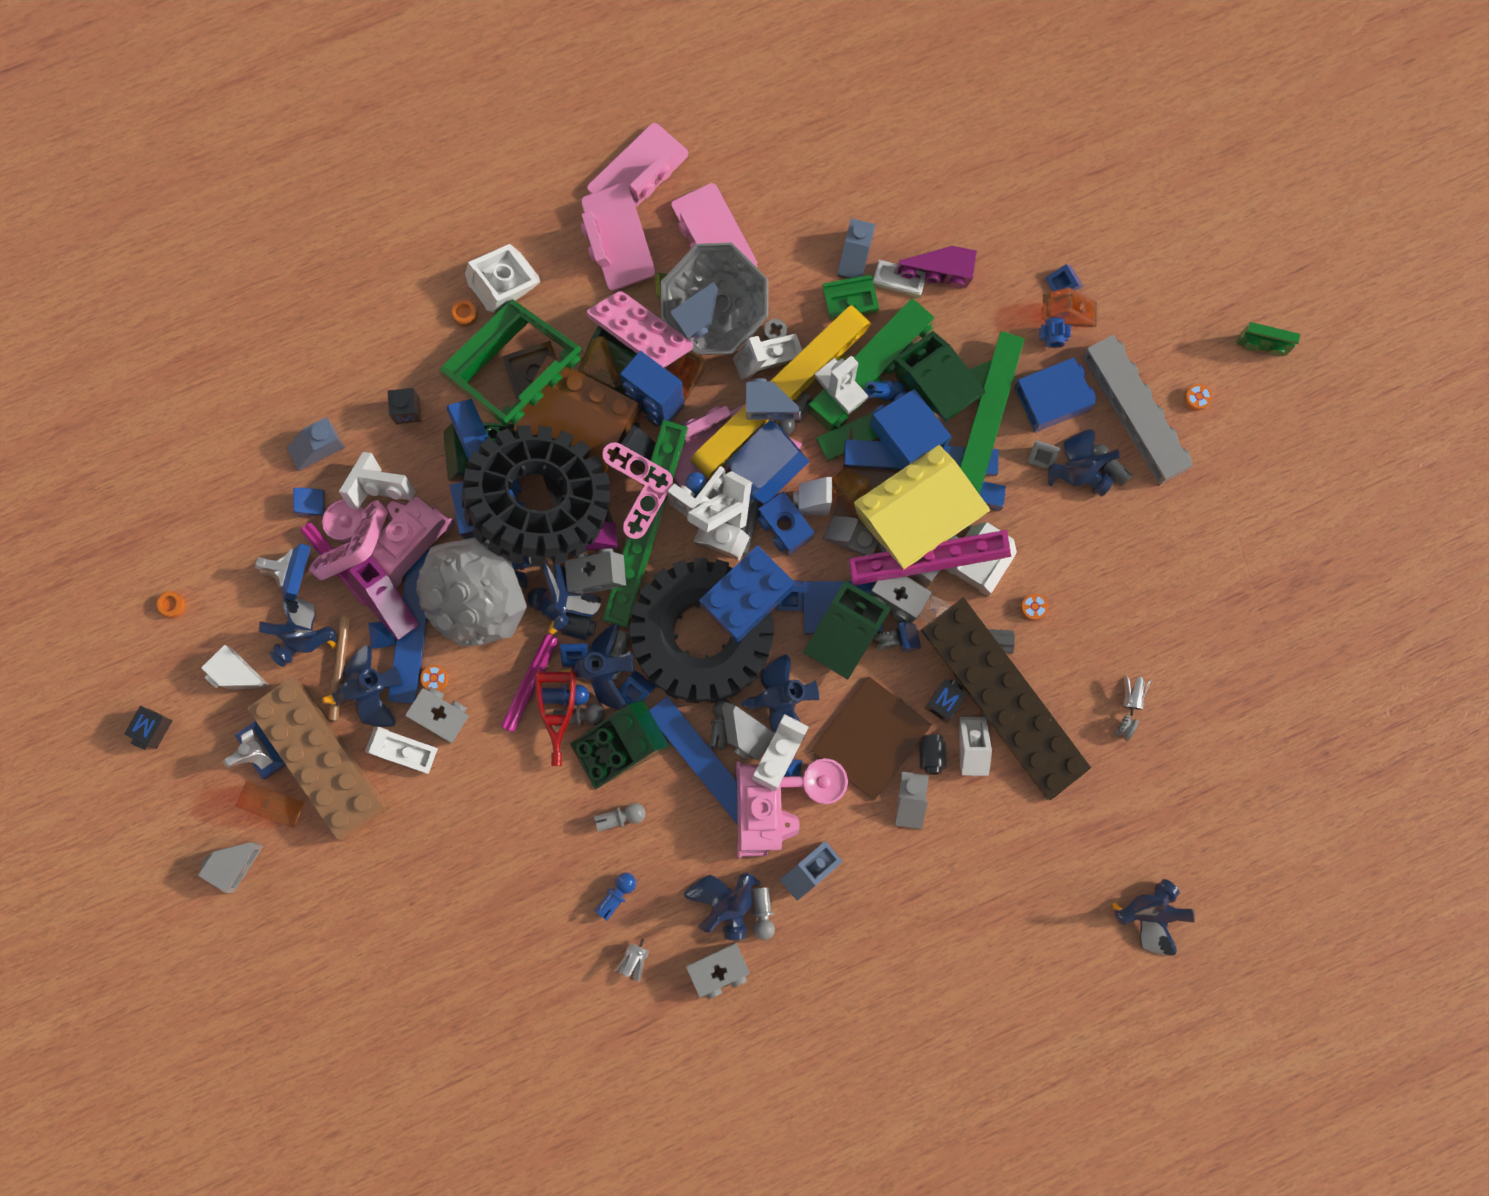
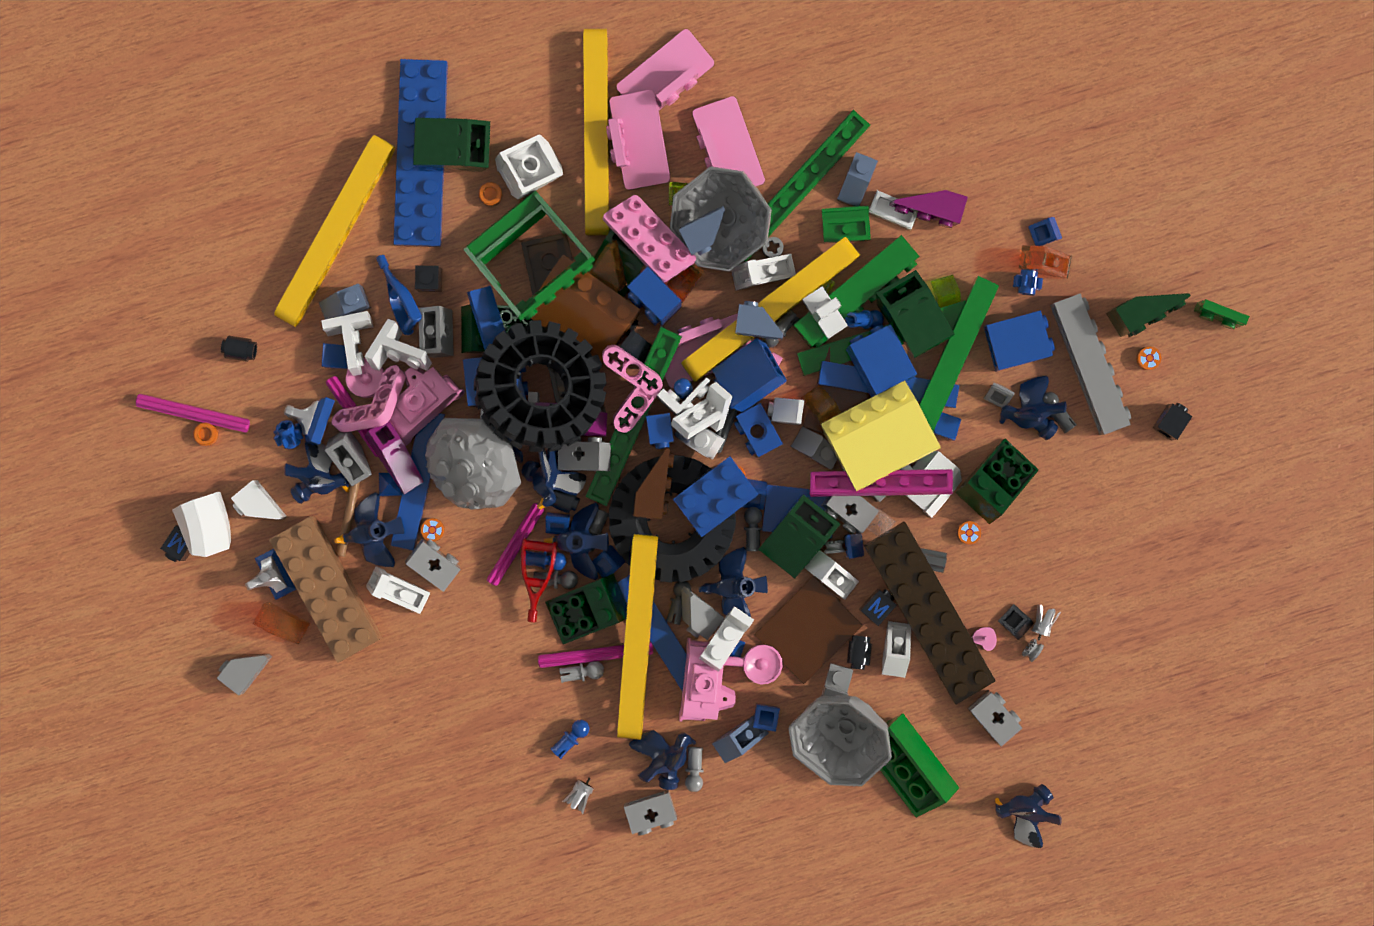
camera: 10 degrees right, 10 degrees up
(154, 582) = (192, 413): none -> dark pink axle
(172, 700) = (204, 525): none -> white slope
(201, 505) = (239, 348): none -> black brick
(262, 591) = (288, 434): none -> blue gear
(297, 370) = (334, 231): none -> yellow beam
(321, 468) = (349, 326): none -> white bracket
(332, 607) = (348, 457): none -> light grey slope
(370, 424) = (400, 300): none -> blue piece
(385, 281) = (418, 187): none -> blue plate
(416, 261) = (452, 143): none -> dark green slope
(418, 459) = (436, 331): none -> light grey brick
(570, 234) = (595, 133): none -> yellow beam
(633, 796) = (583, 656): none -> dark pink axle
(674, 600) = (651, 494): none -> reddish brown slope
(676, 533) = (660, 430): none -> blue brick
(678, 766) = (637, 636): none -> yellow beam
(792, 618) = (752, 517): none -> dark grey pin
(809, 248) = (815, 168): none -> green tile
(837, 842) = (766, 717): none -> blue slope
(888, 670) = (832, 574): none -> white slope
(927, 853) = (841, 740): none -> light grey rock
(970, 352) = (946, 291): none -> clear neon green slope
(1009, 877) = (915, 769): none -> green slope
(1056, 547) = (997, 481): none -> dark green slope
(1071, 721) = (985, 637): none -> bright pink piece
(1083, 805) = (1009, 721): none -> light grey brick
(1103, 699) = (1016, 622): none -> black slope
(1185, 344) = (1134, 313): none -> dark green slope
(1237, 458) = (1173, 421): none -> black brick

